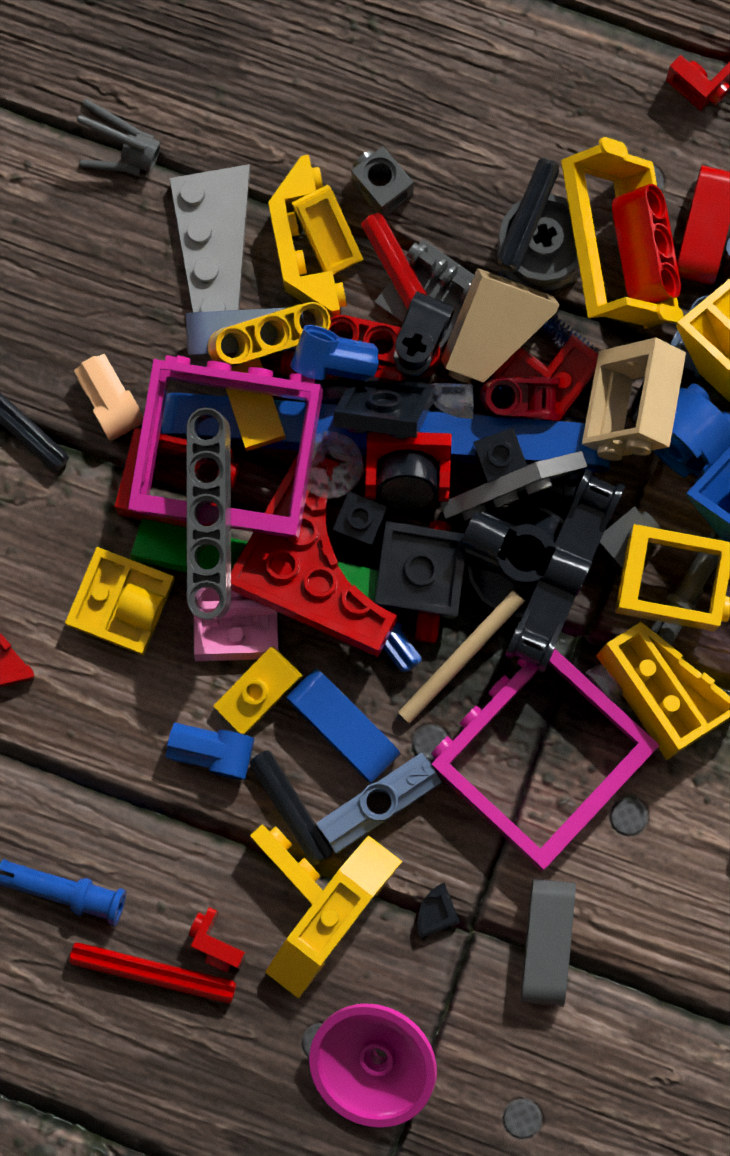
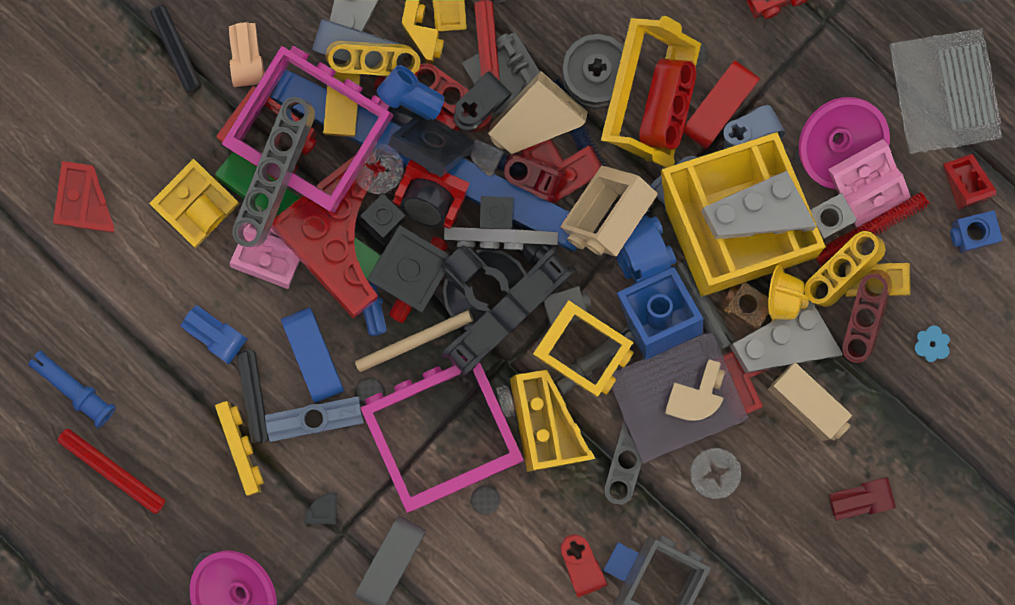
camera: 20 degrees right, 5 degrees up
(219, 953) = (161, 476): red bracket -> none
(257, 690) = (263, 306): yellow plate -> none
(332, 916) = (249, 483): yellow slope -> none
(528, 215) = (590, 48): black axle -> none

